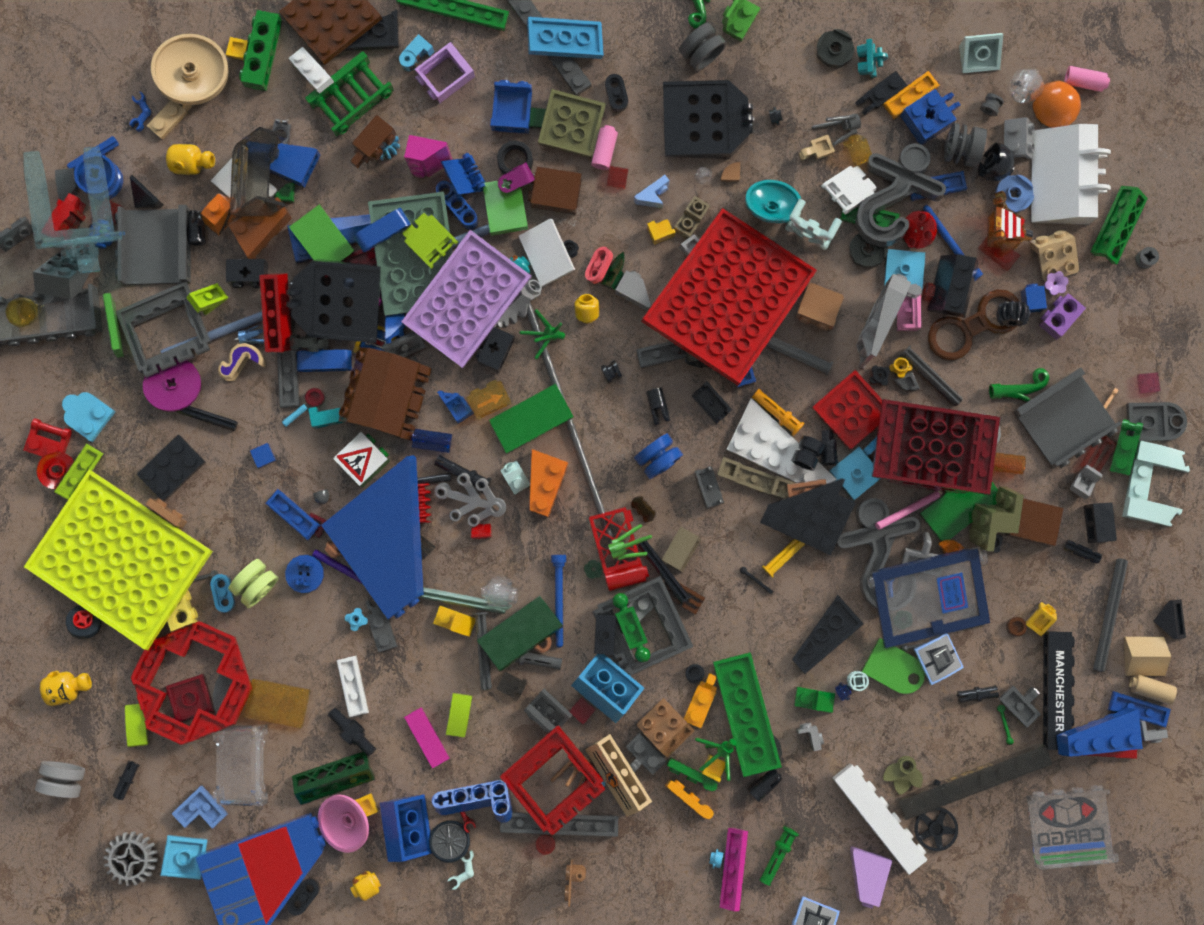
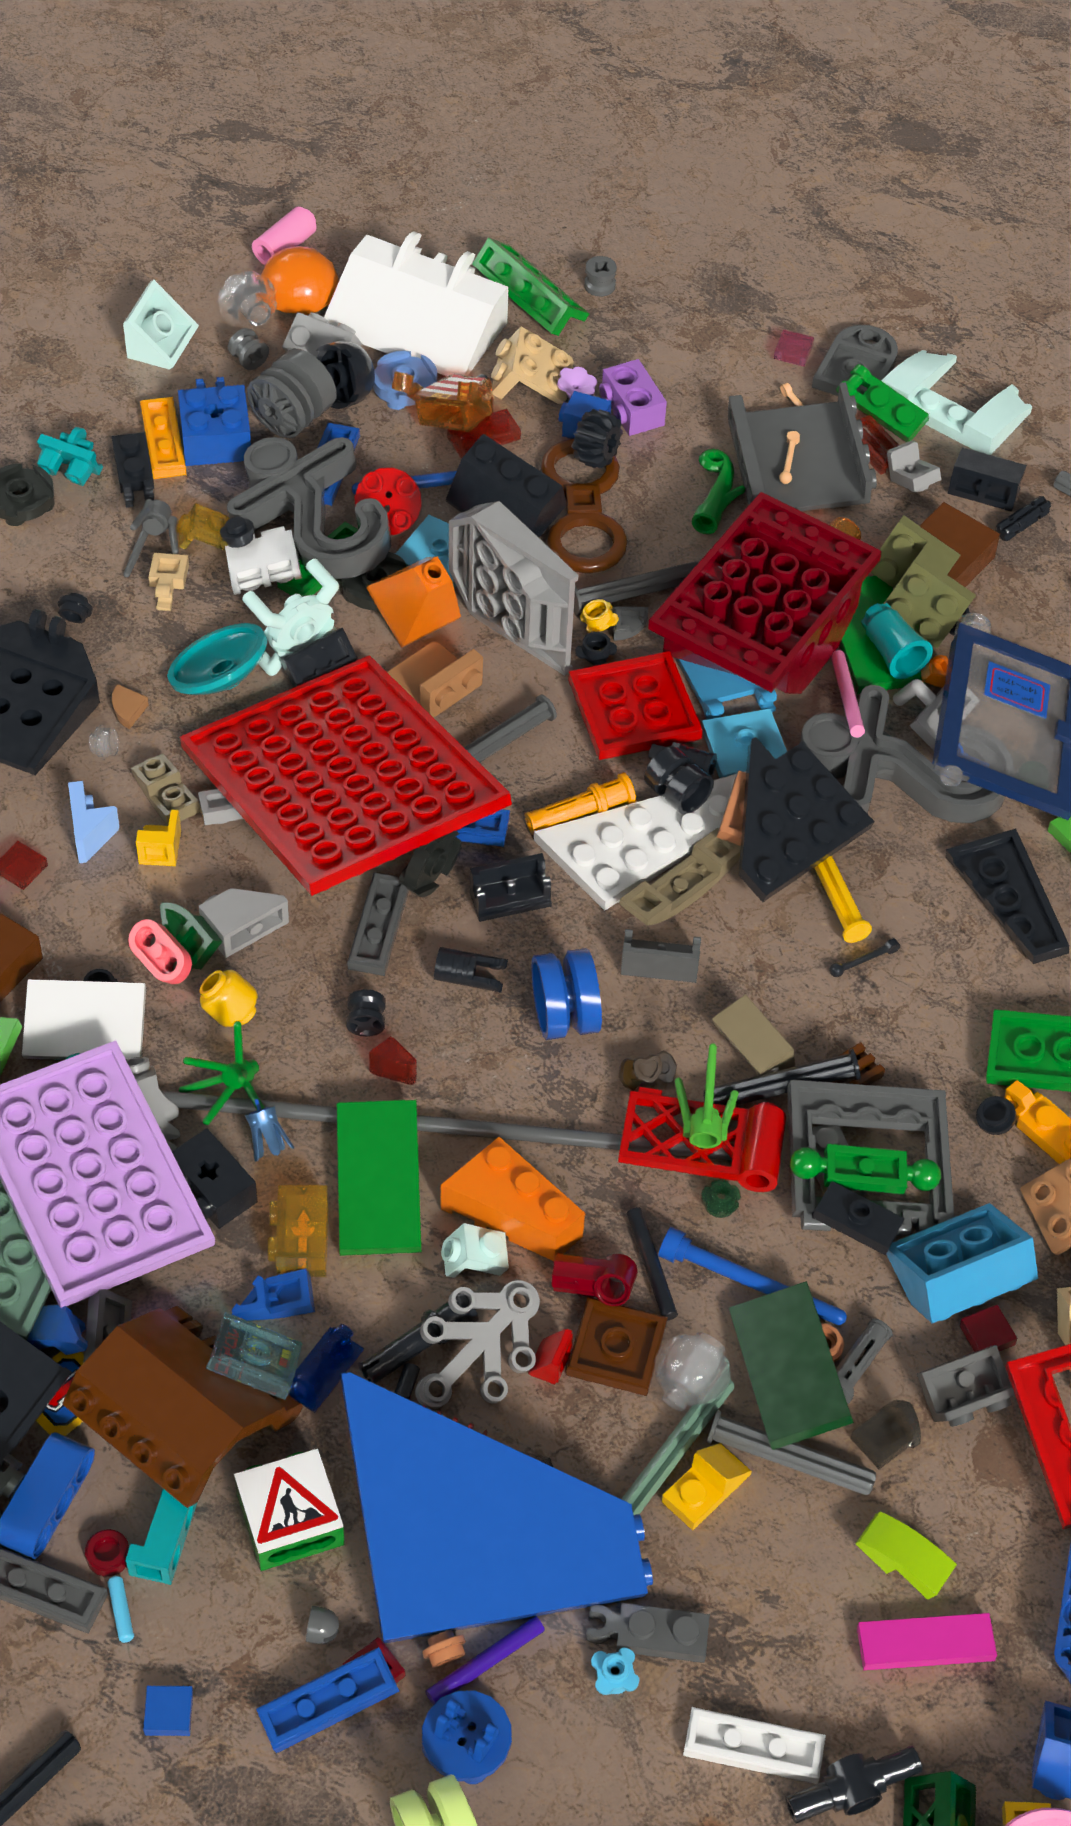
camera: 70 degrees left, 30 degrees down
(417, 412) = (254, 1356): none -> clear light blue tile
(501, 556) = (616, 1346): none -> reddish brown tile
(526, 538) = (593, 1276): none -> dark red piece
(529, 356) = (266, 1122): none -> flat silver piece
(547, 553) = (652, 1263): none -> black bar
(592, 396) = (393, 1062): none -> clear red slope
(802, 247) = (319, 658): none -> black plate
(859, 167) = (237, 532): none -> black plate
(865, 268) = (416, 600): none -> orange slope
(953, 520) = (896, 641): none -> teal plant
(1075, 411) = (793, 438): none -> light nougat hinge

